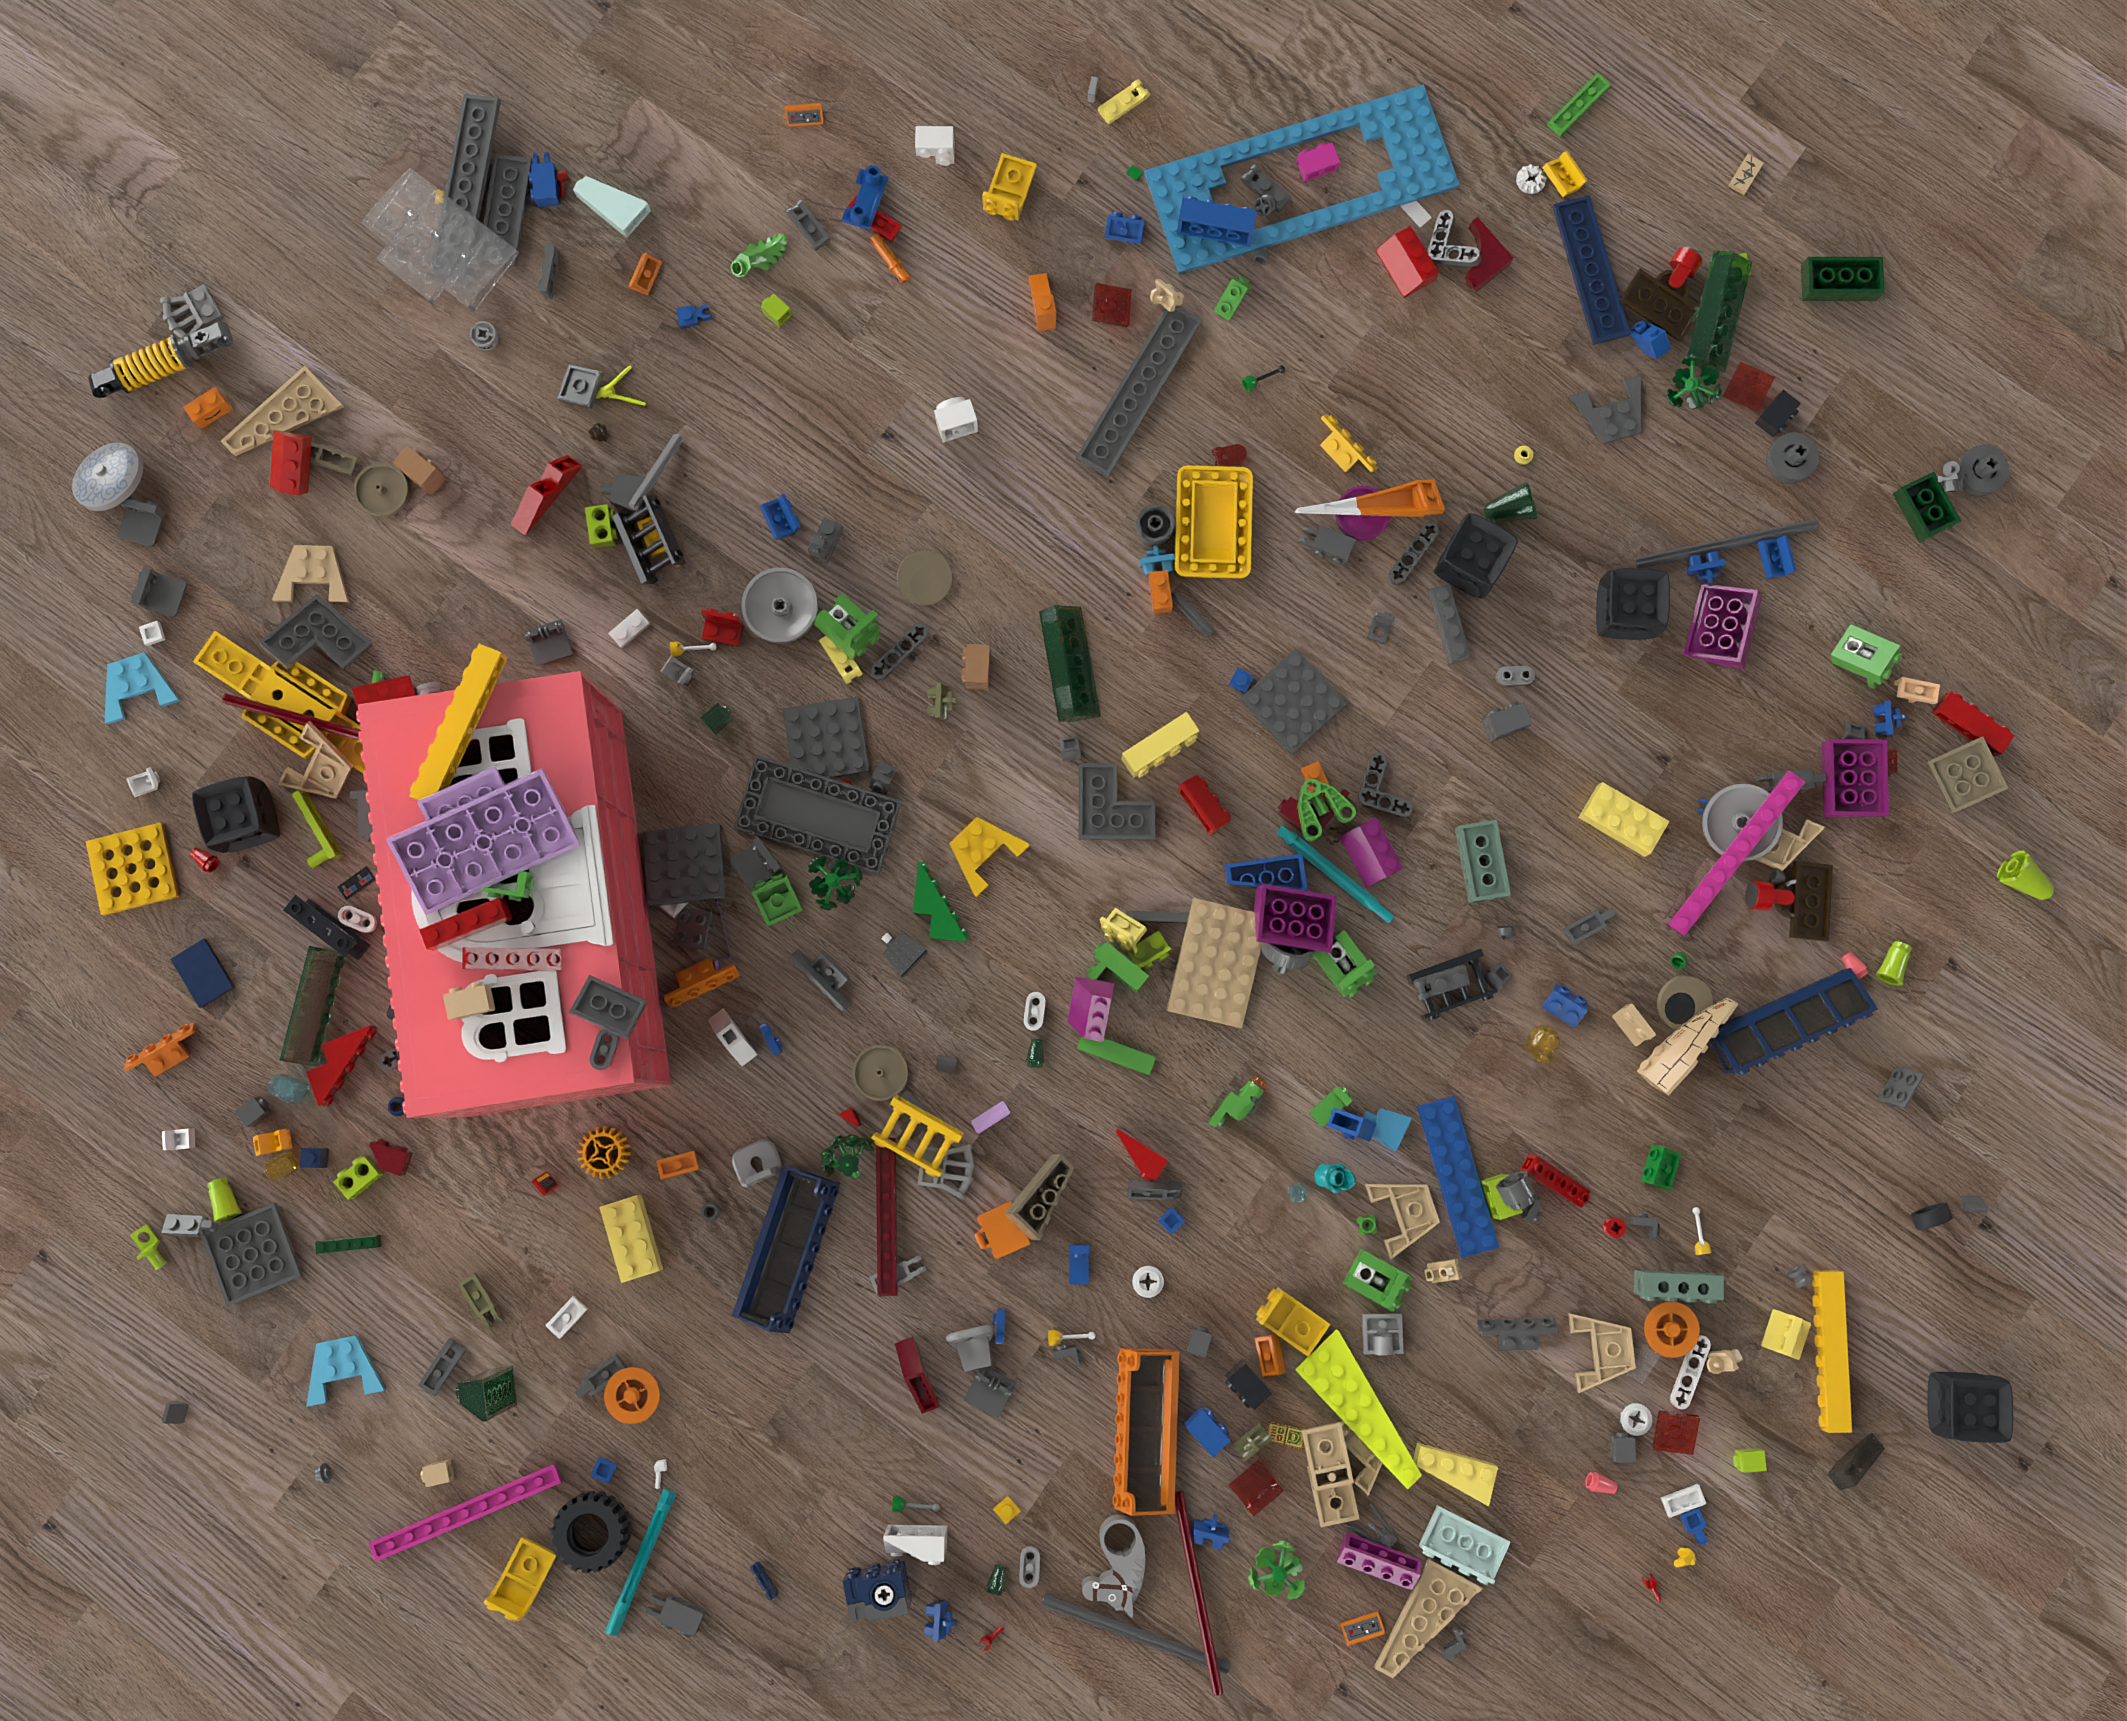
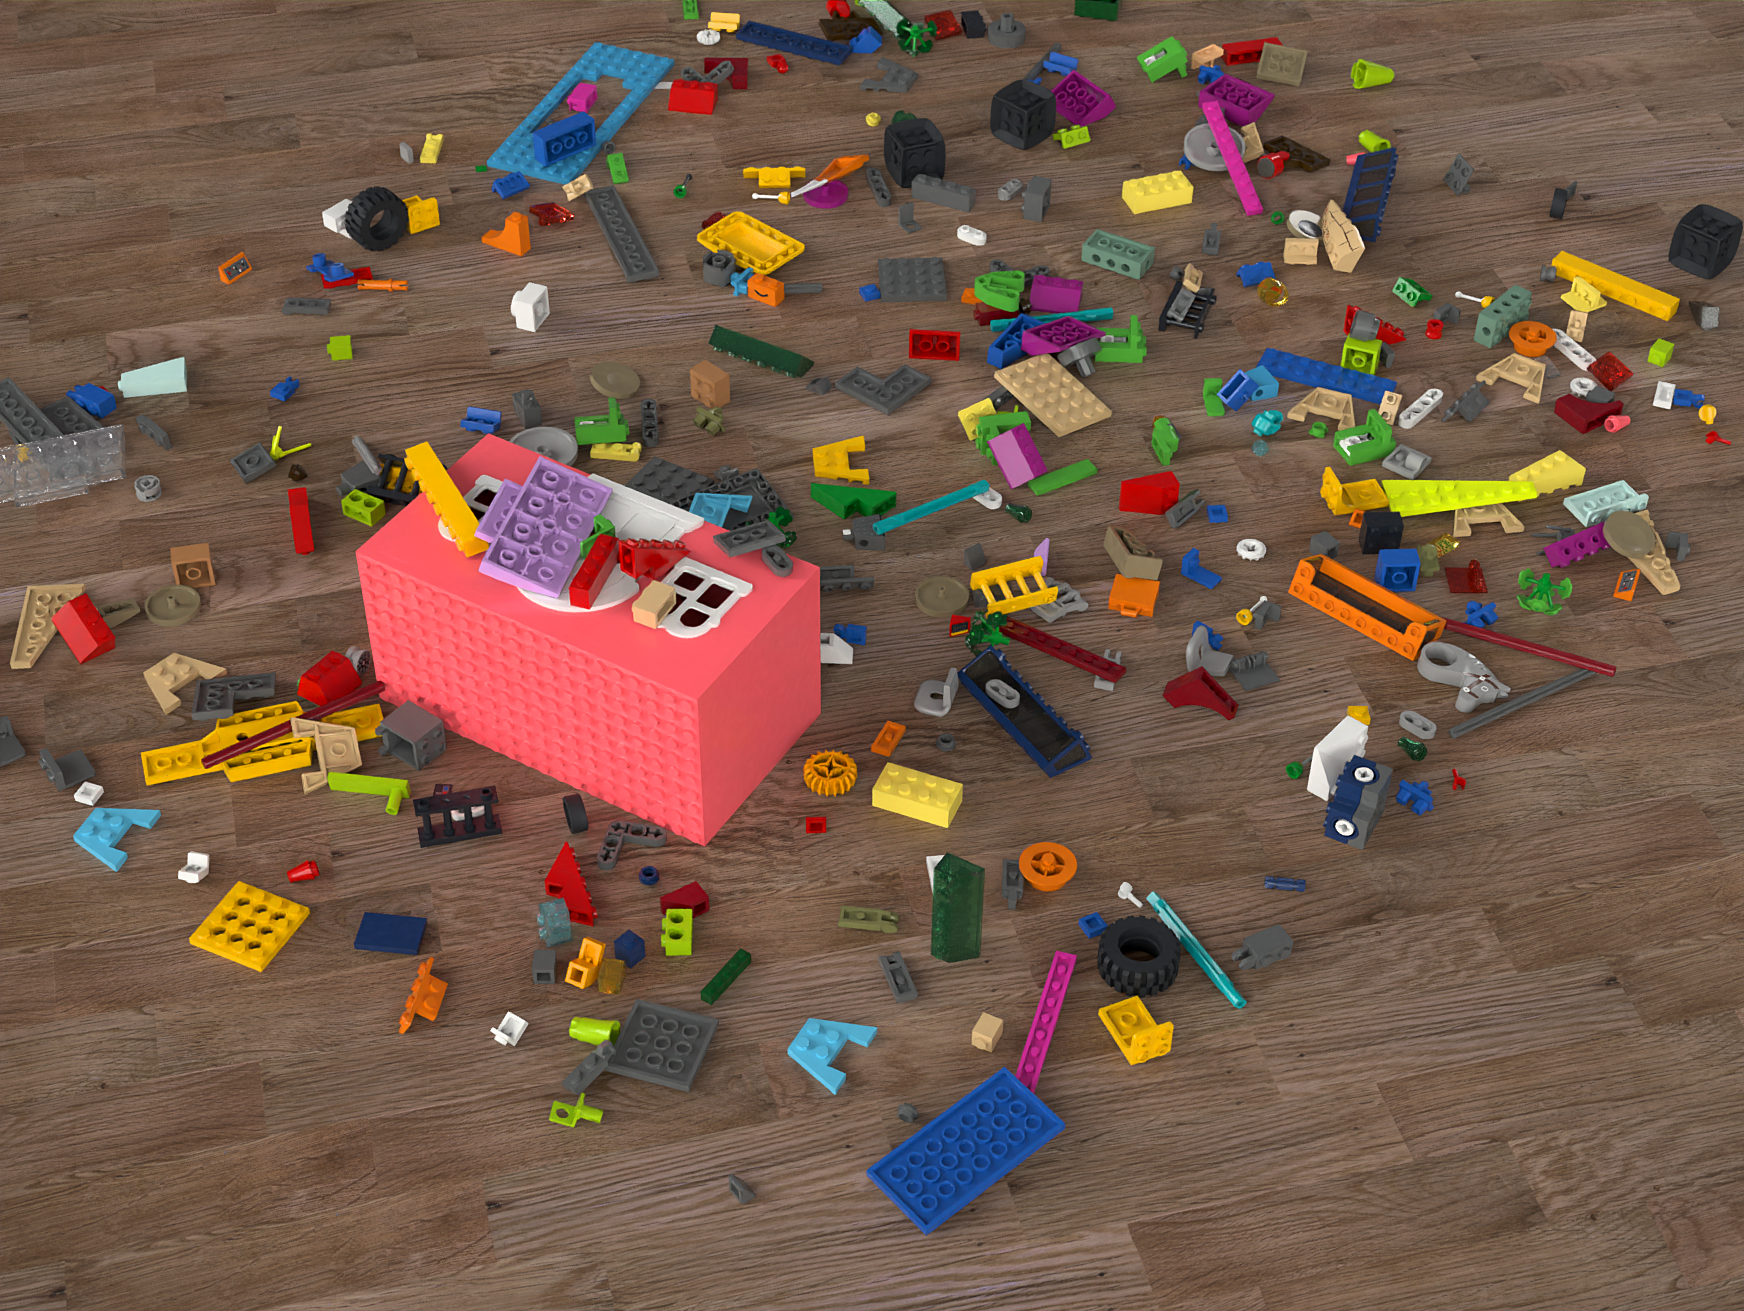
camera: 50 degrees left, 40 degrees down
(235, 814) = (300, 810): black piece -> none
(312, 1006) = (504, 869): slope -> none
(317, 1543) = (965, 1150): none -> blue plate
(645, 274) = (223, 394): orange slope -> none
(759, 255) = (295, 334): bright green plant -> none
(793, 1217) = (1002, 693): none -> light grey plate
(810, 813) = (716, 506): none -> medium azure wing
(949, 179) = (364, 209): none -> black tyre
(967, 986) = (930, 507): none -> teal piece
(1159, 745) = (870, 337): light yellow brick -> none
(1319, 484) = (783, 197): none -> hinge
(1328, 544) = (827, 211): dark grey hinge -> none
(1330, 1474) = (1490, 530): tan bracket -> none
(1407, 699) = (971, 235): none -> white plate
(1417, 1601) = (1629, 534): none -> dark tan piece
(1478, 1292) = (1418, 406): none -> white beam
(1502, 957) = (1192, 278): none -> tan plate
(1542, 282) = (779, 62): none -> red plate
(1586, 1449) = (1585, 415): none -> dark red arch
(1657, 664) = (1073, 136): none -> lime bracket

